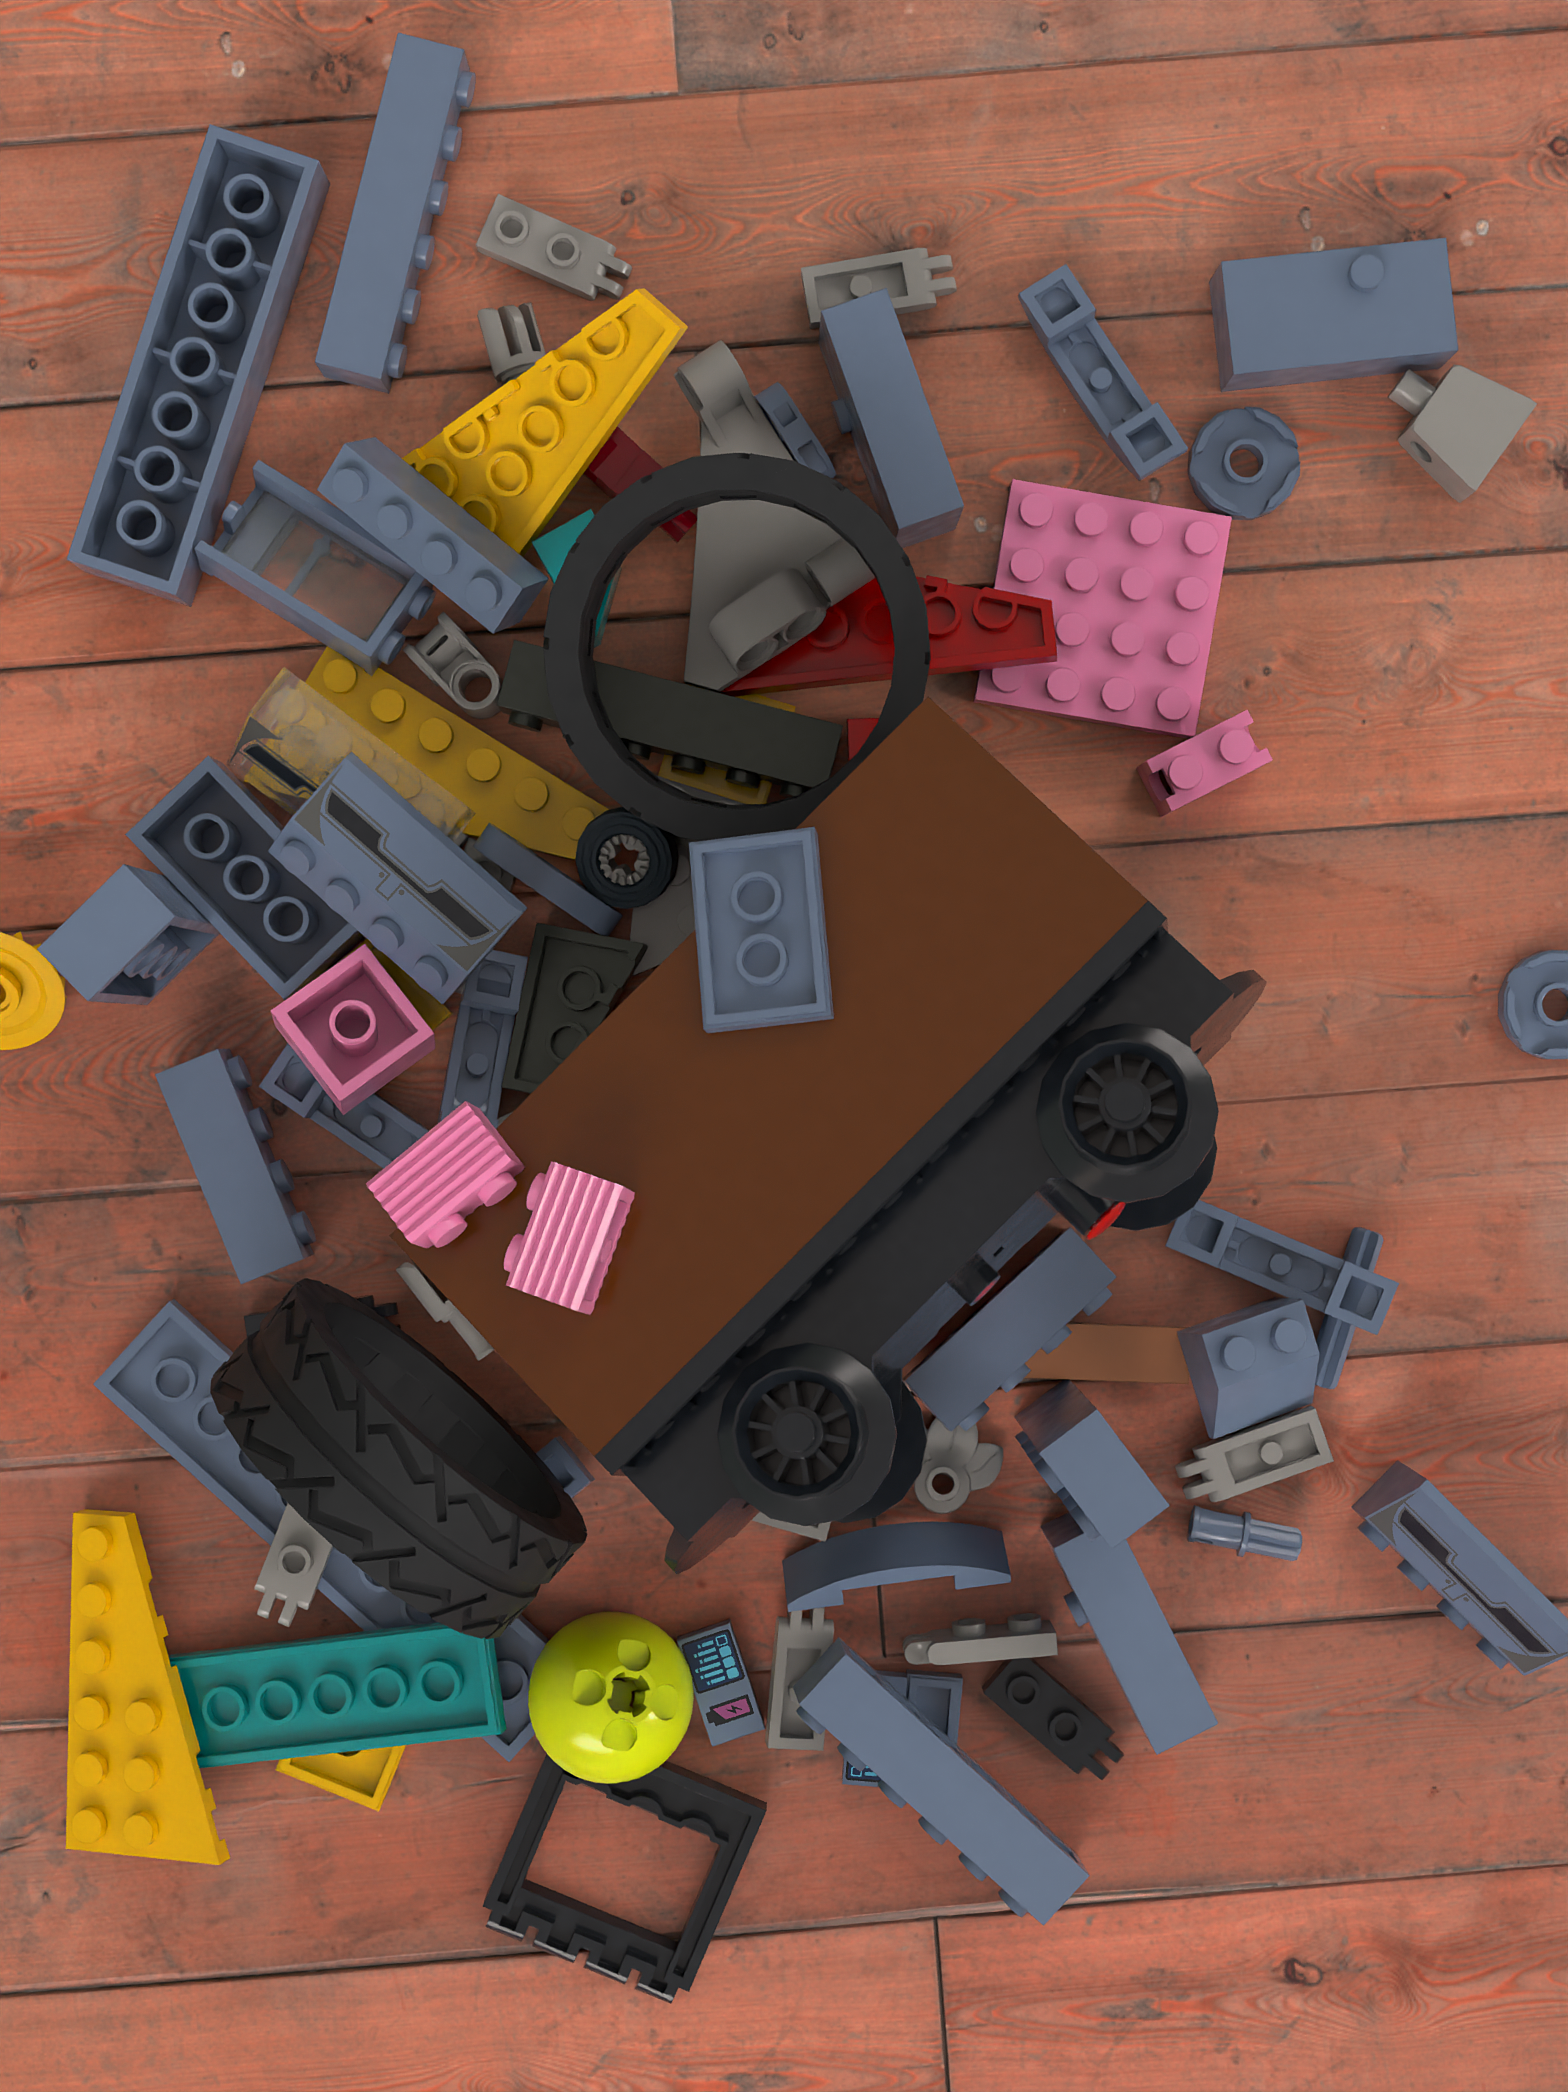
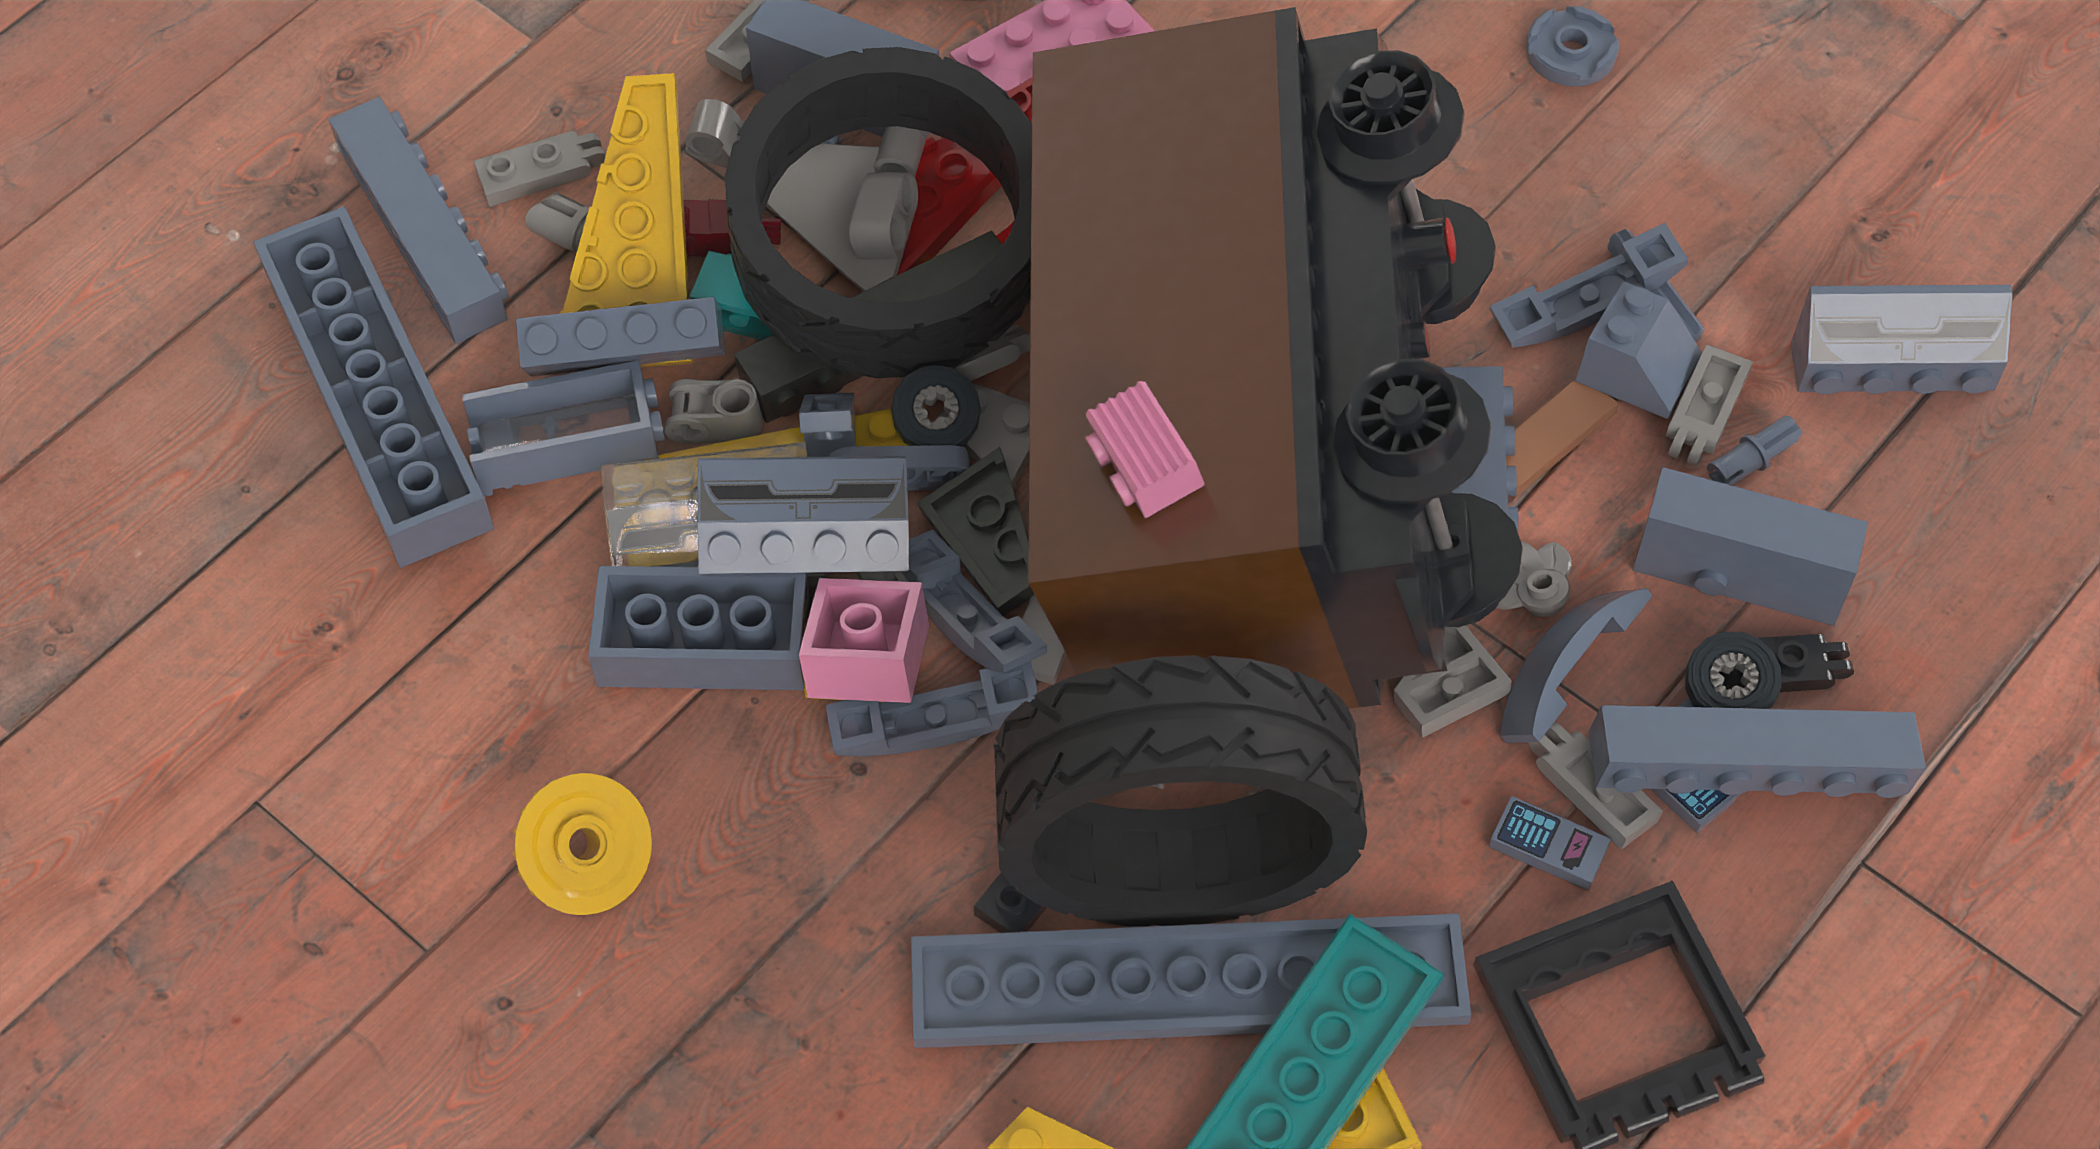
camera: 45 degrees left, 30 degrees down
(128, 938) = (659, 688): sand blue brick -> none
(236, 1164) = (868, 813): sand blue brick -> none
(292, 1567) = (1173, 999): light grey hinge -> none
(447, 1177) = (1029, 501): bright pink brick -> none
(526, 785) = (827, 422): none -> sand blue slope
(587, 1716) = (1490, 899): neon yellow piece -> none
(761, 930) = (1072, 225): sand blue tile -> none
(972, 1729) = (1730, 652): none -> black bush
(975, 1642) = (1671, 658): light grey hinge -> none
(1087, 1465) = (1608, 448): sand blue brick -> none

